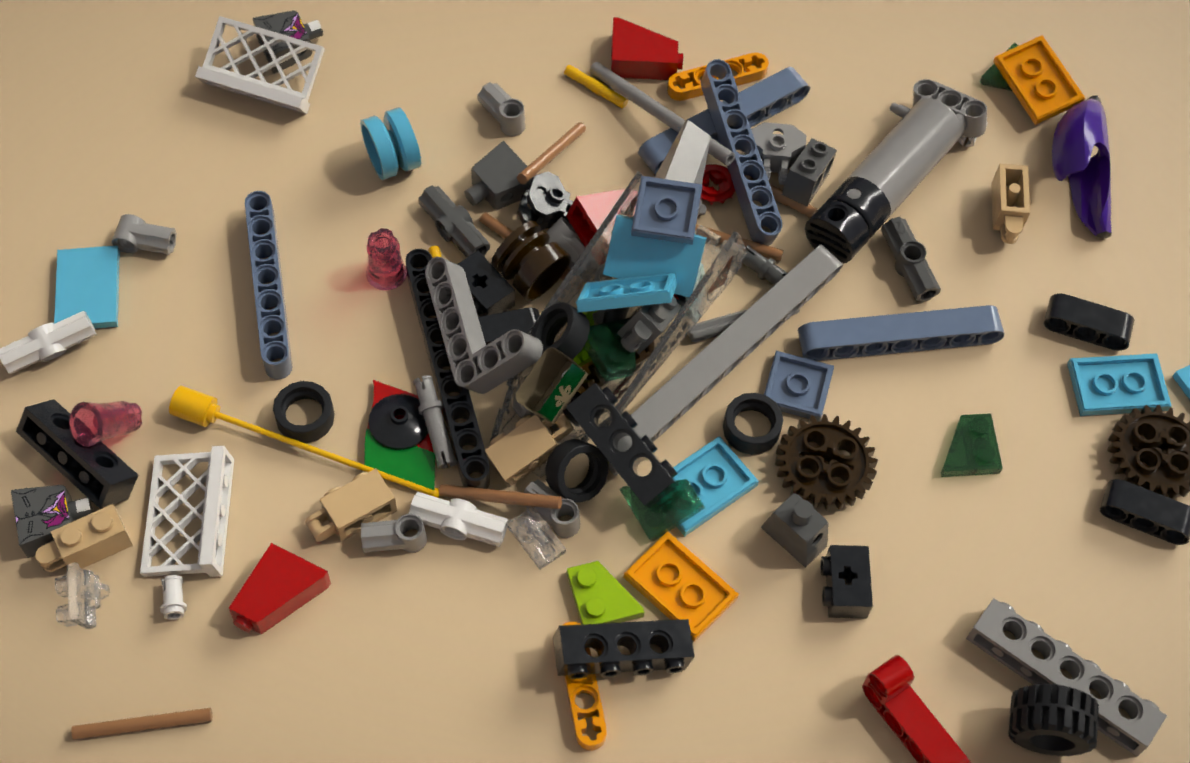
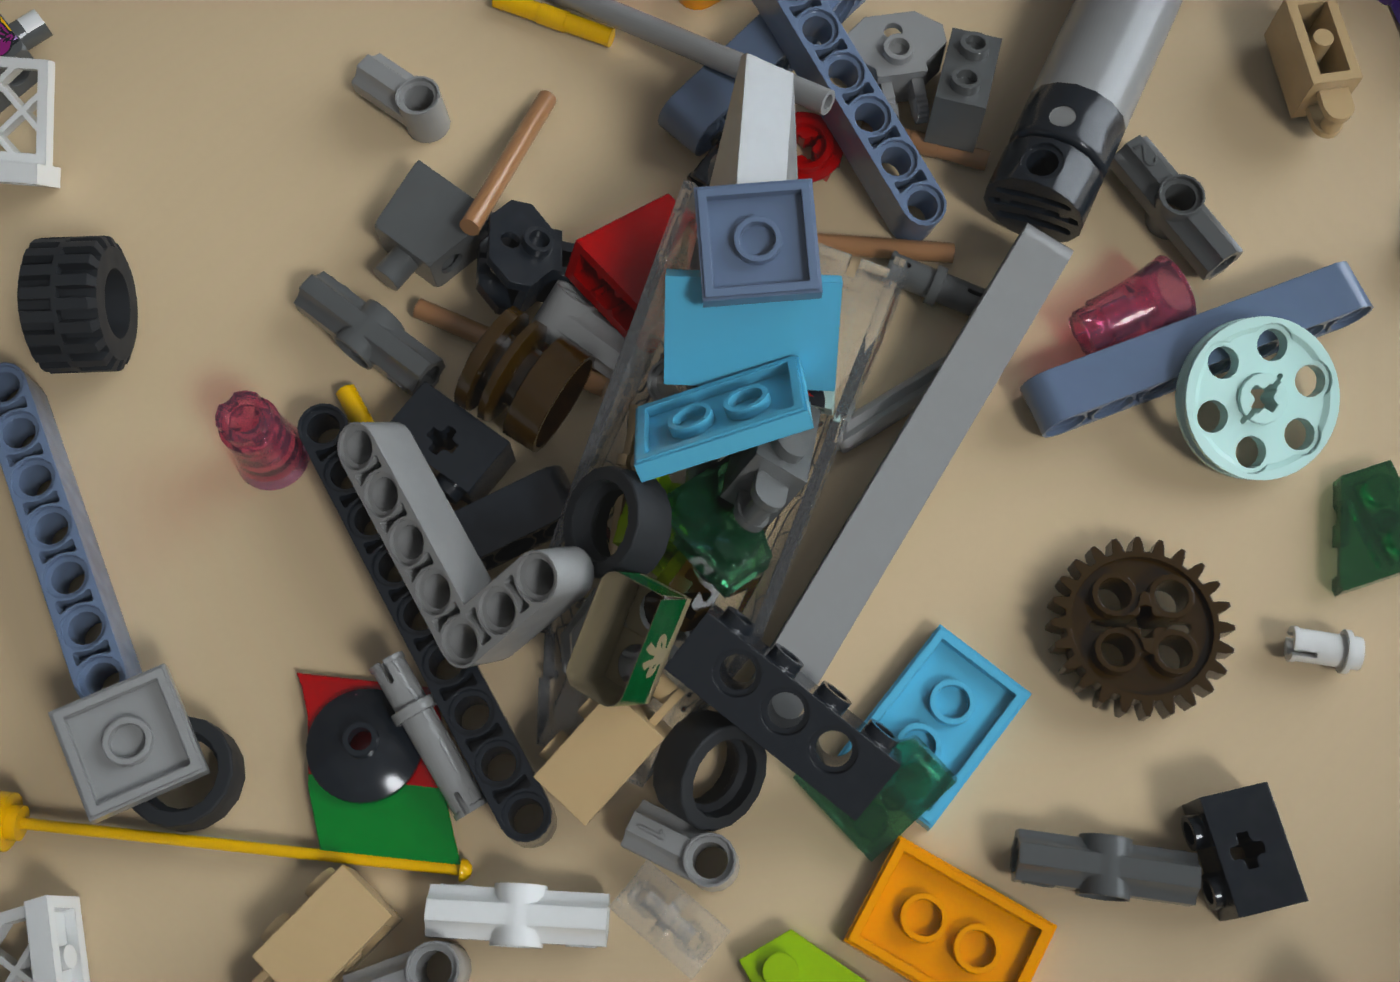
camera: 10 degrees left, 10 degrees up
(283, 385) = (128, 743): none -> light grey tile
(308, 171) = (77, 304): none -> black tyre
(390, 143) = (217, 214): medium azure wheel -> none
(500, 496) = (585, 855): medium nougat bar -> none
(758, 403) = (1007, 547): black tyre -> none
(771, 571) = (1105, 867): none -> dark grey piece
(796, 527) = (1125, 773): dark grey torso -> none
(799, 385) = (1047, 490): sand blue tile -> none
(872, 301) = (1135, 306): none -> clear pink plant
(910, 359) = (1281, 398): none -> light aqua wedge
(924, 497) = (1325, 648): none -> white pin

